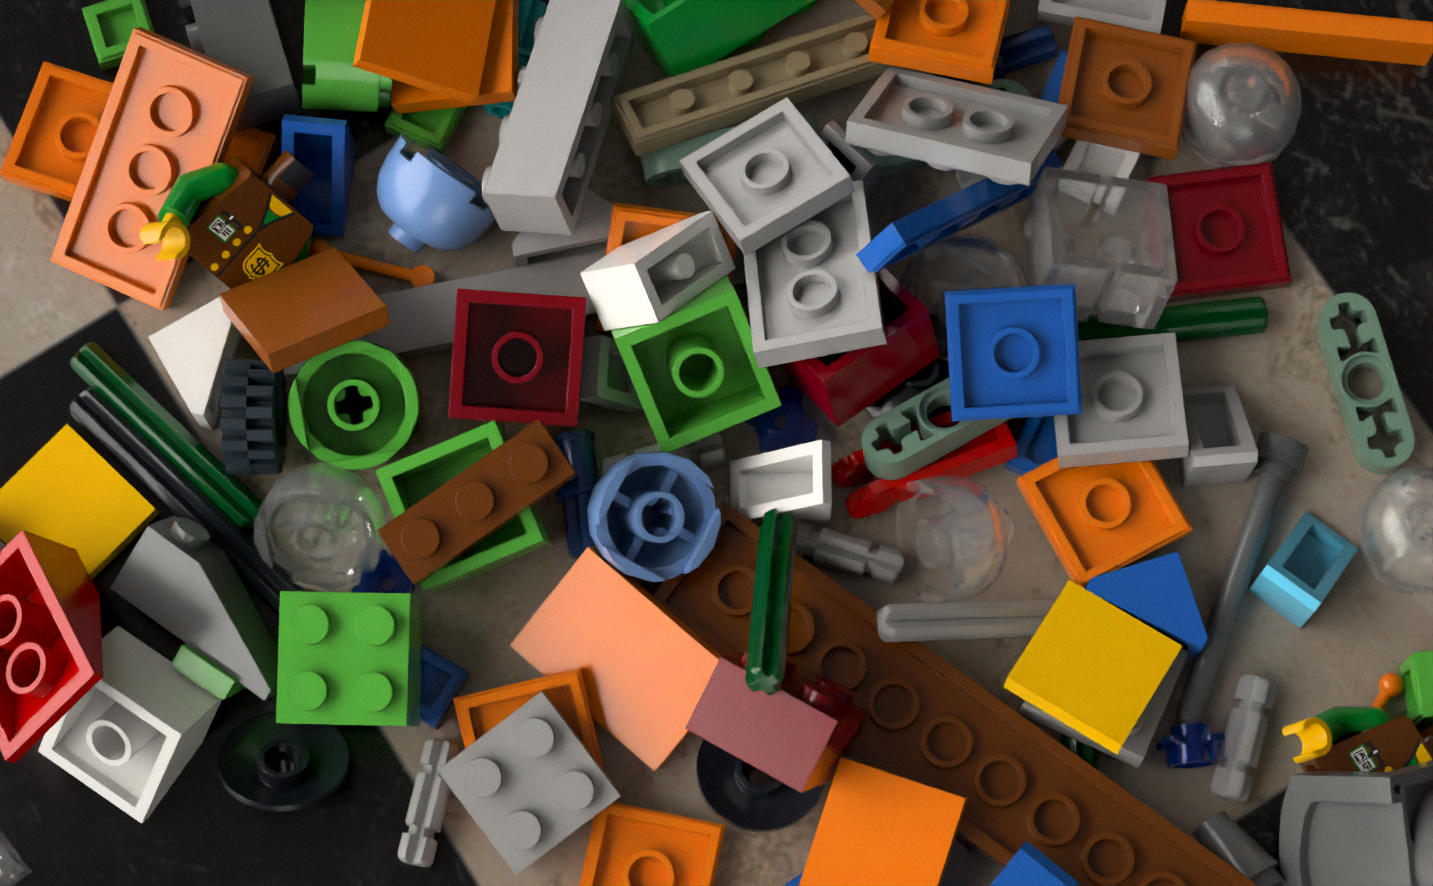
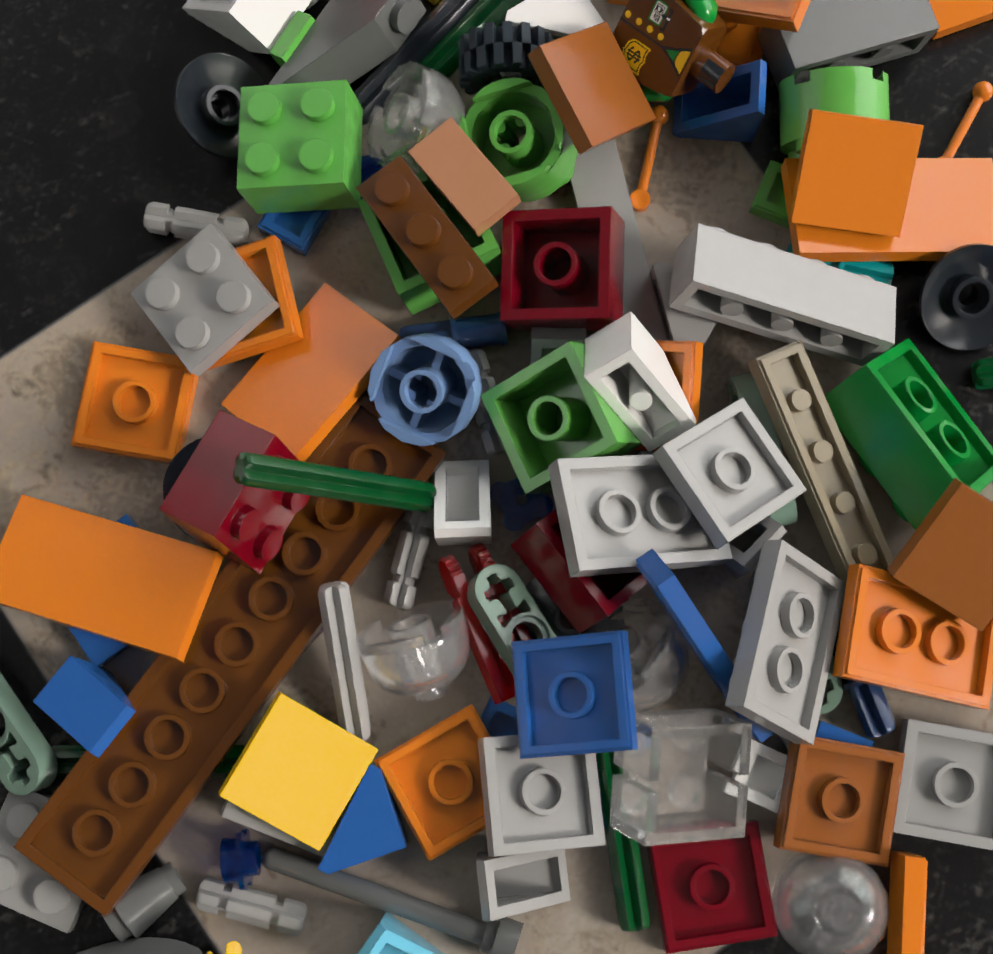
camera: 90 degrees right, 5 degrees up
(408, 456) = (464, 176): none -> nougat tile
(431, 199) = (706, 190): medium blue cylinder -> none

